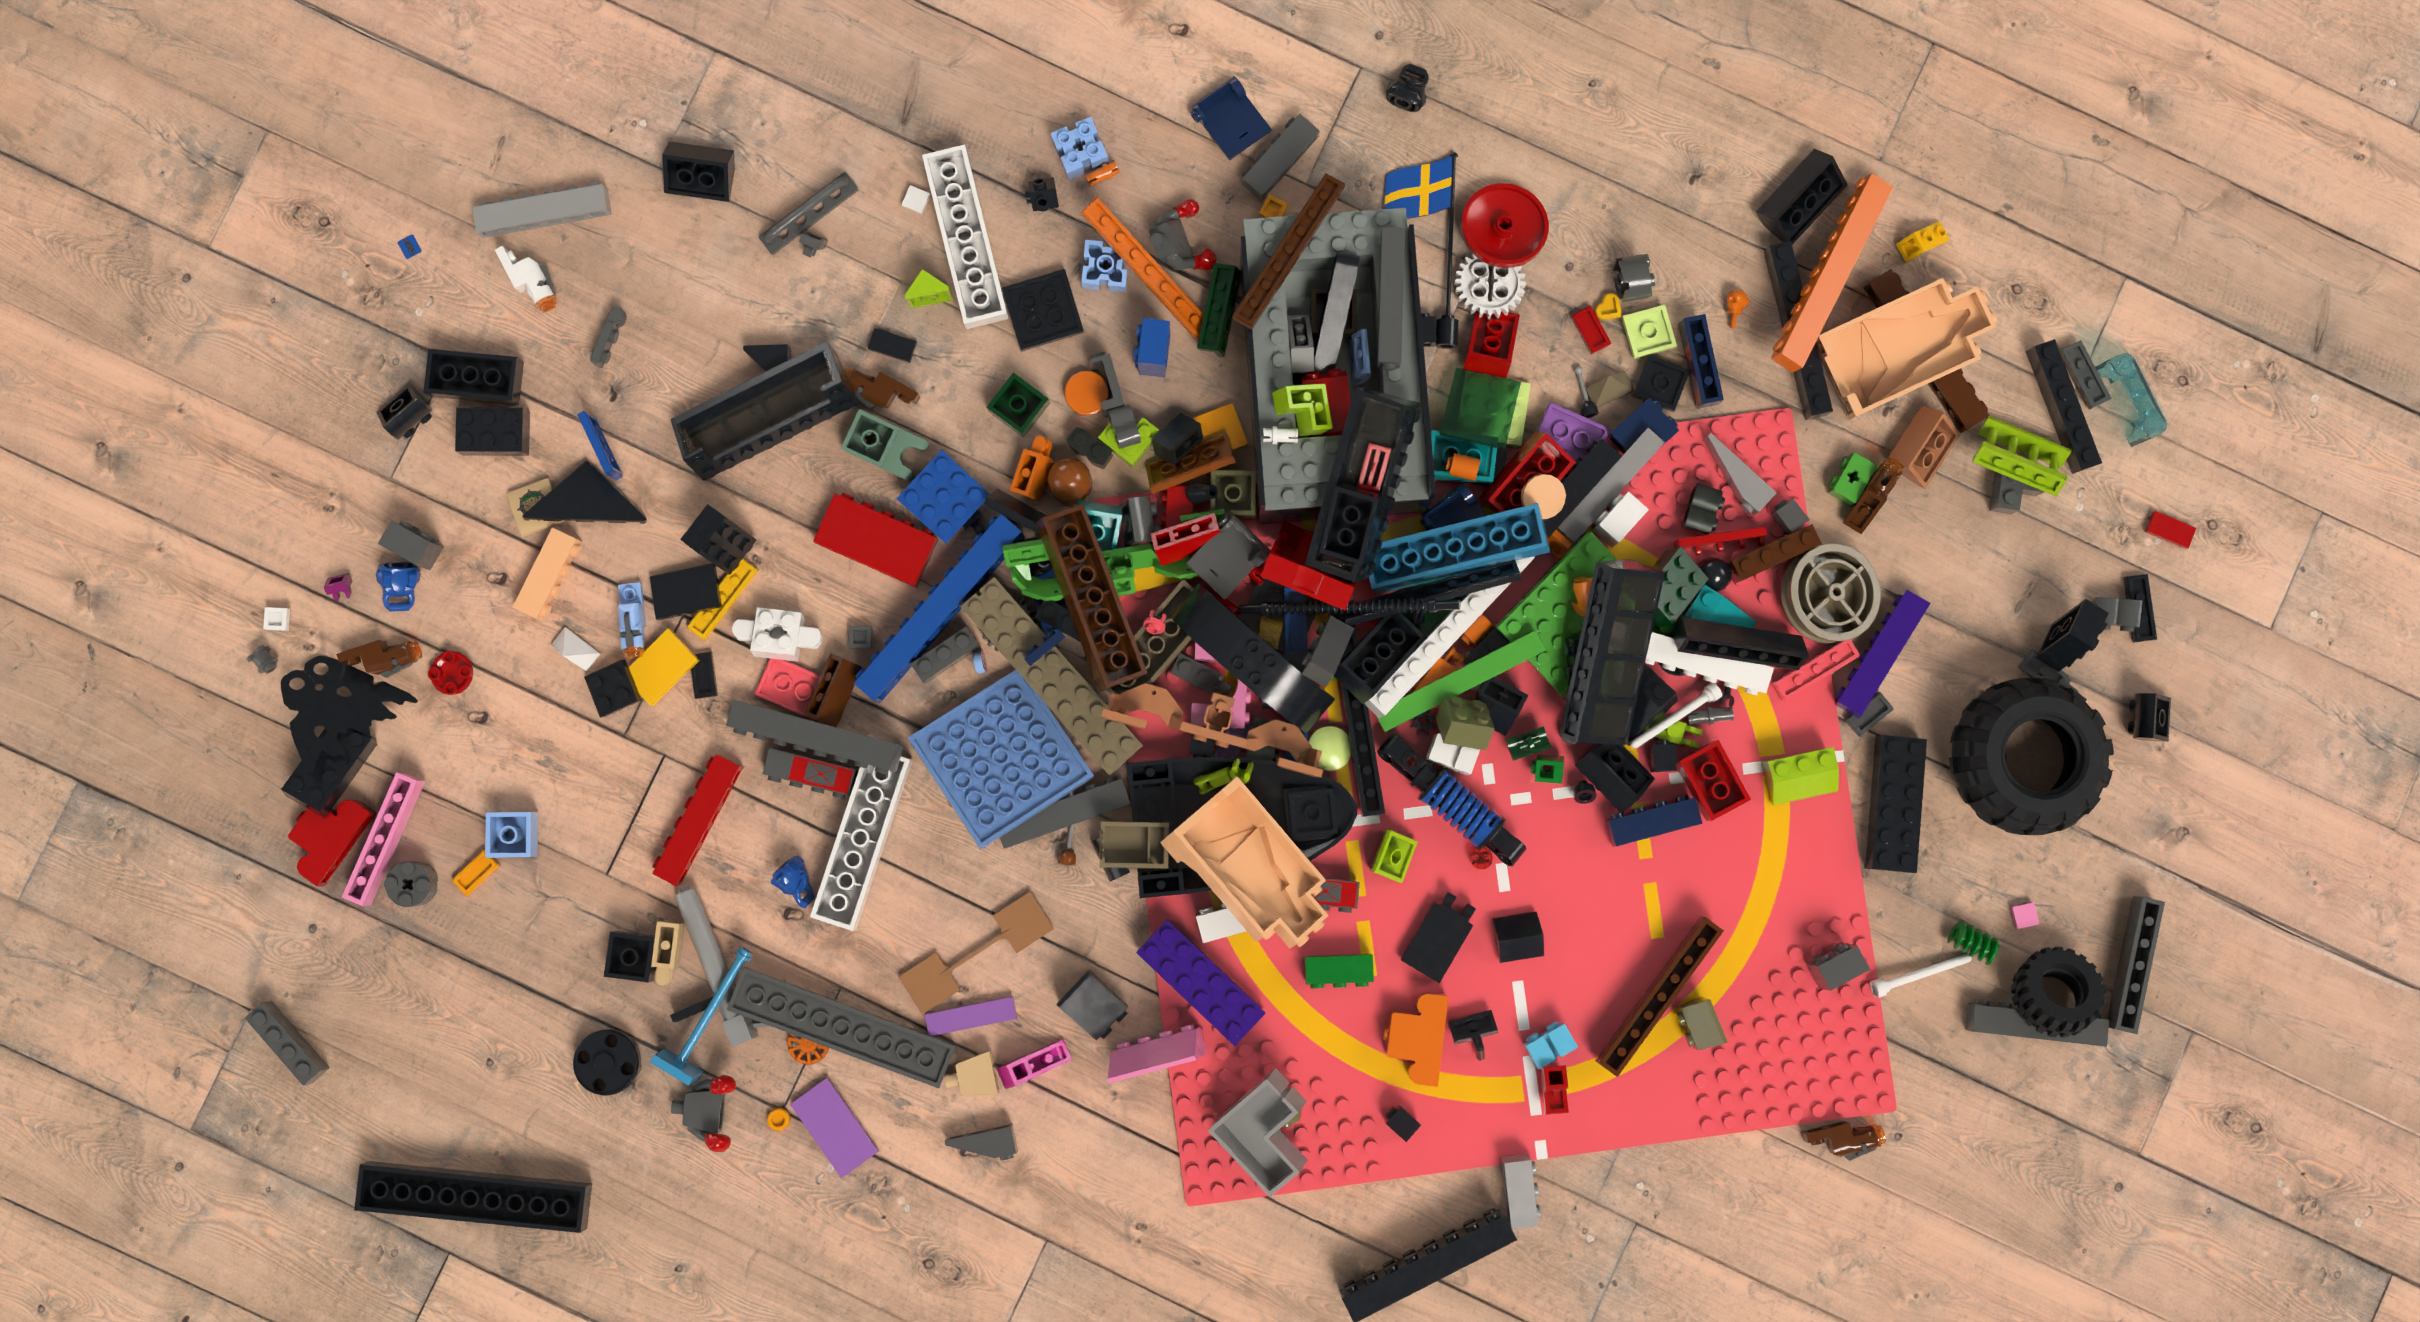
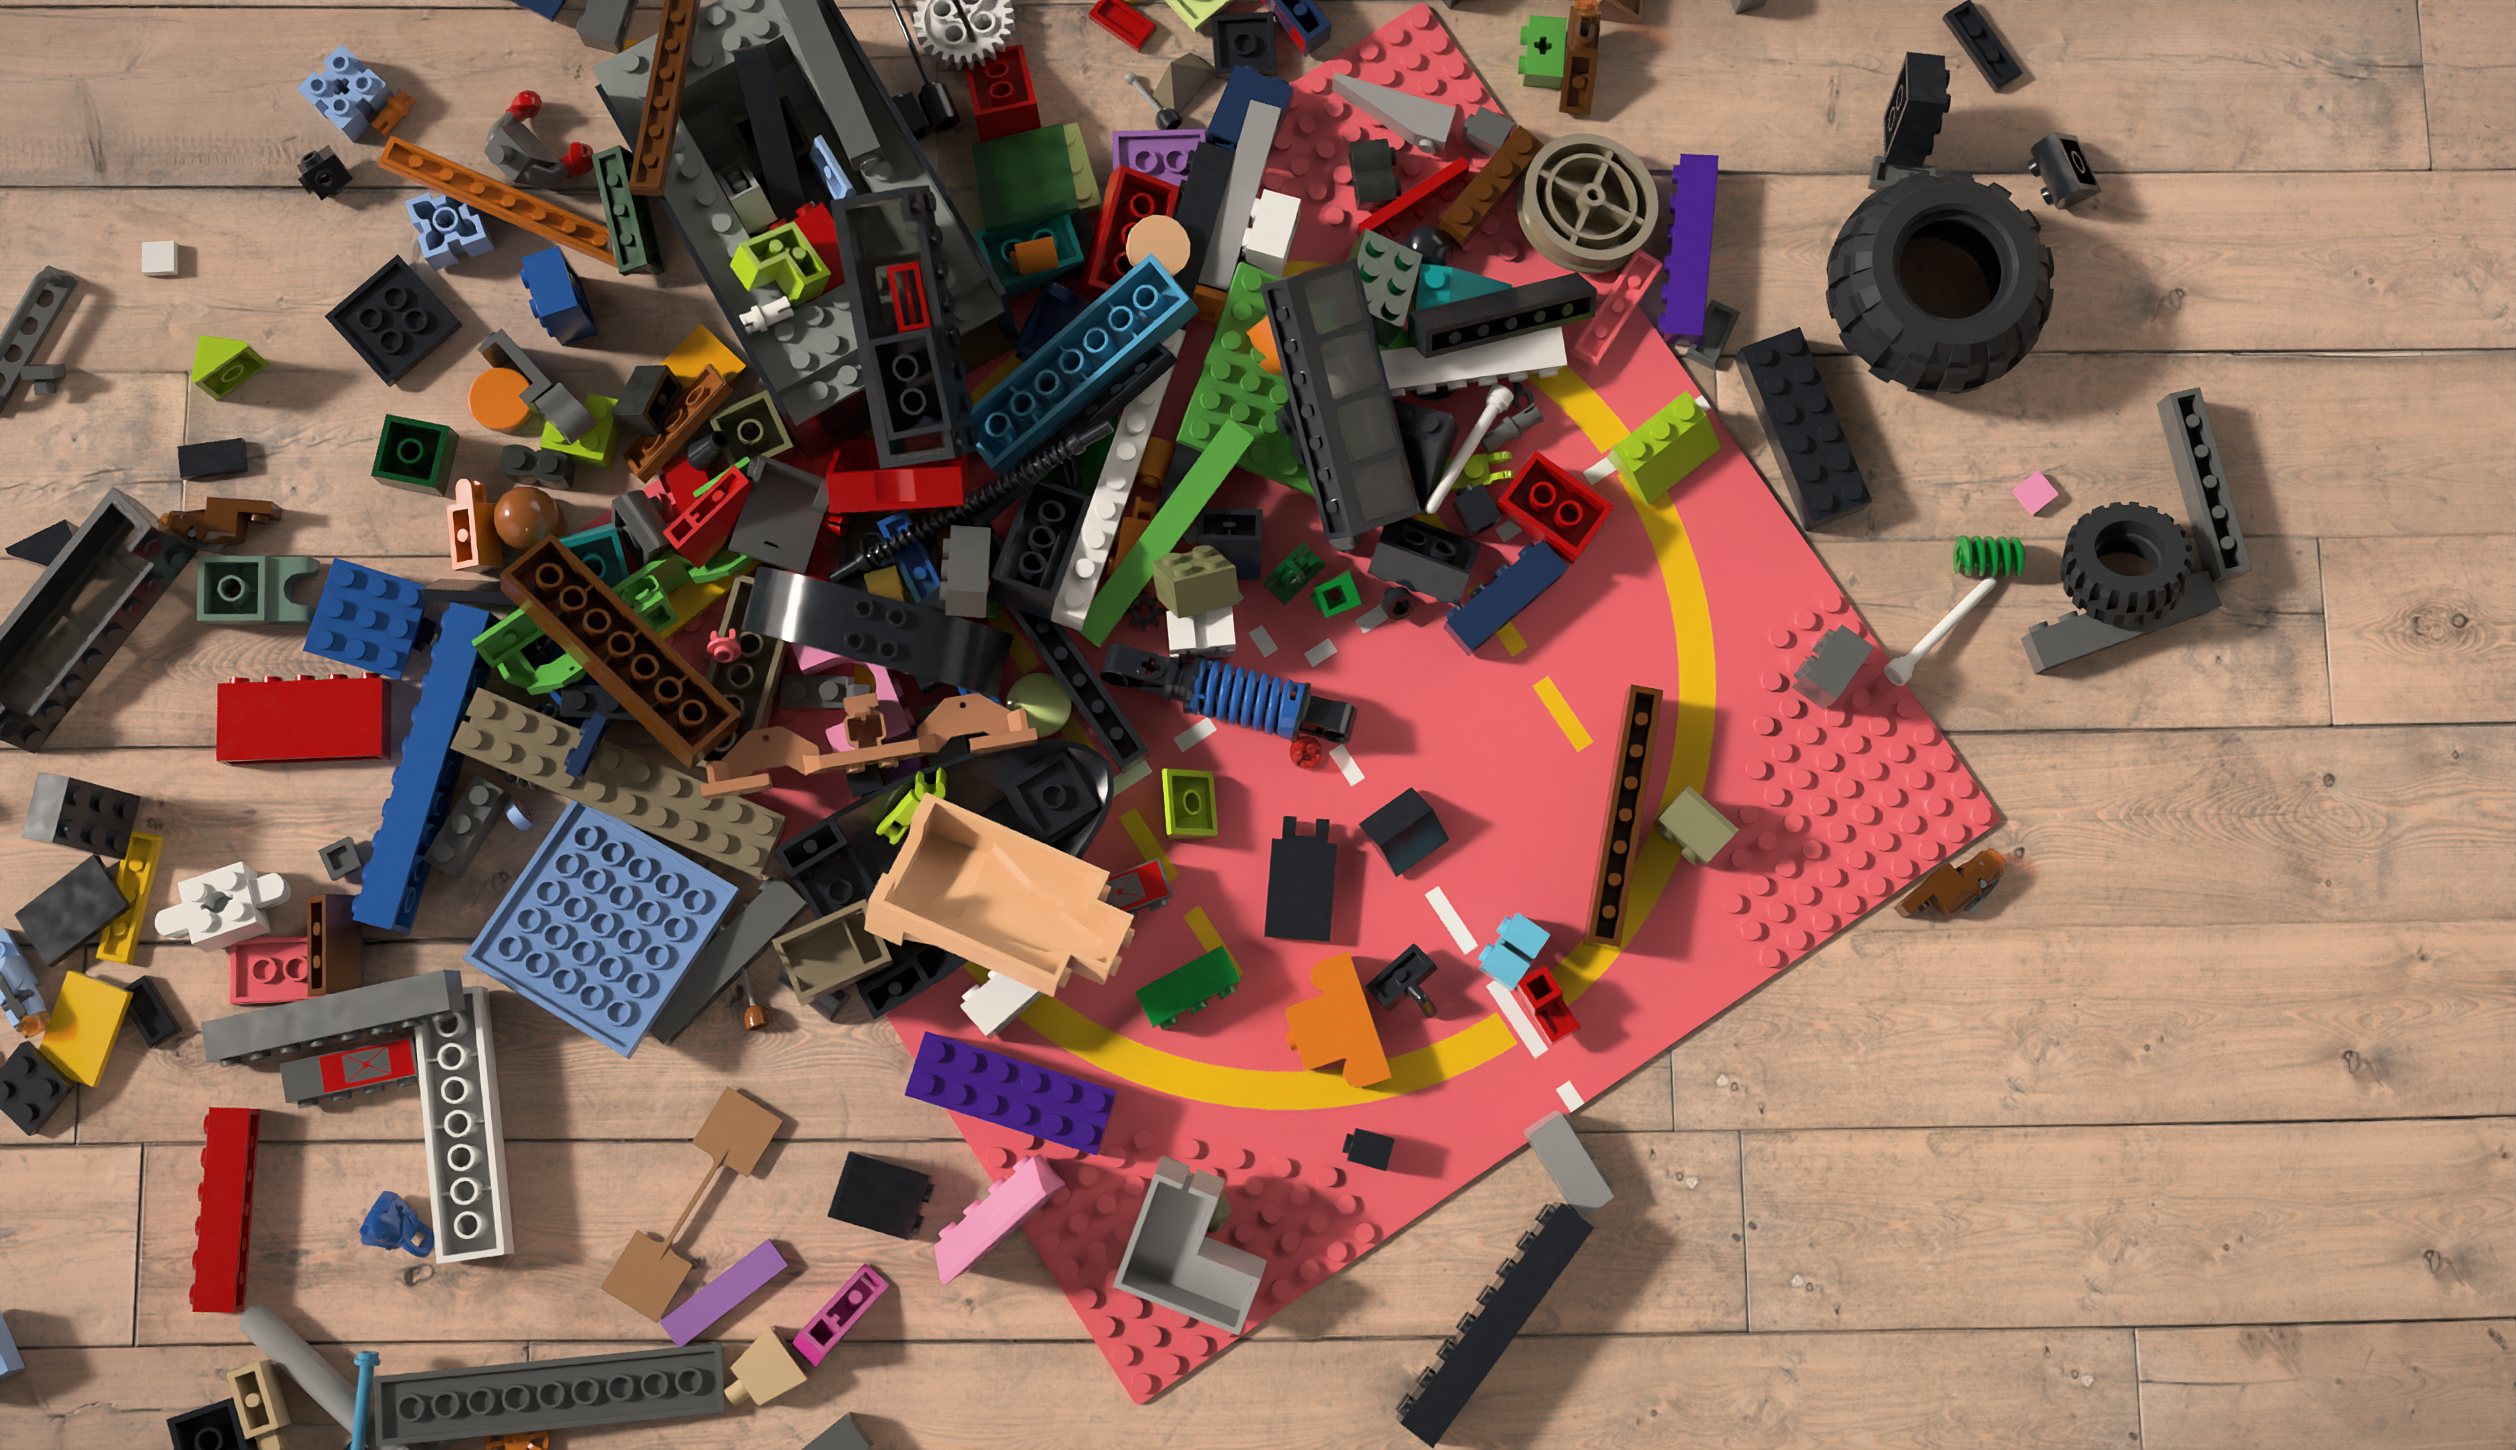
camera: 30 degrees left, 5 degrees down
(965, 237) = (245, 273): white brick -> none
(2122, 612) = (1965, 58): dark grey brick -> none

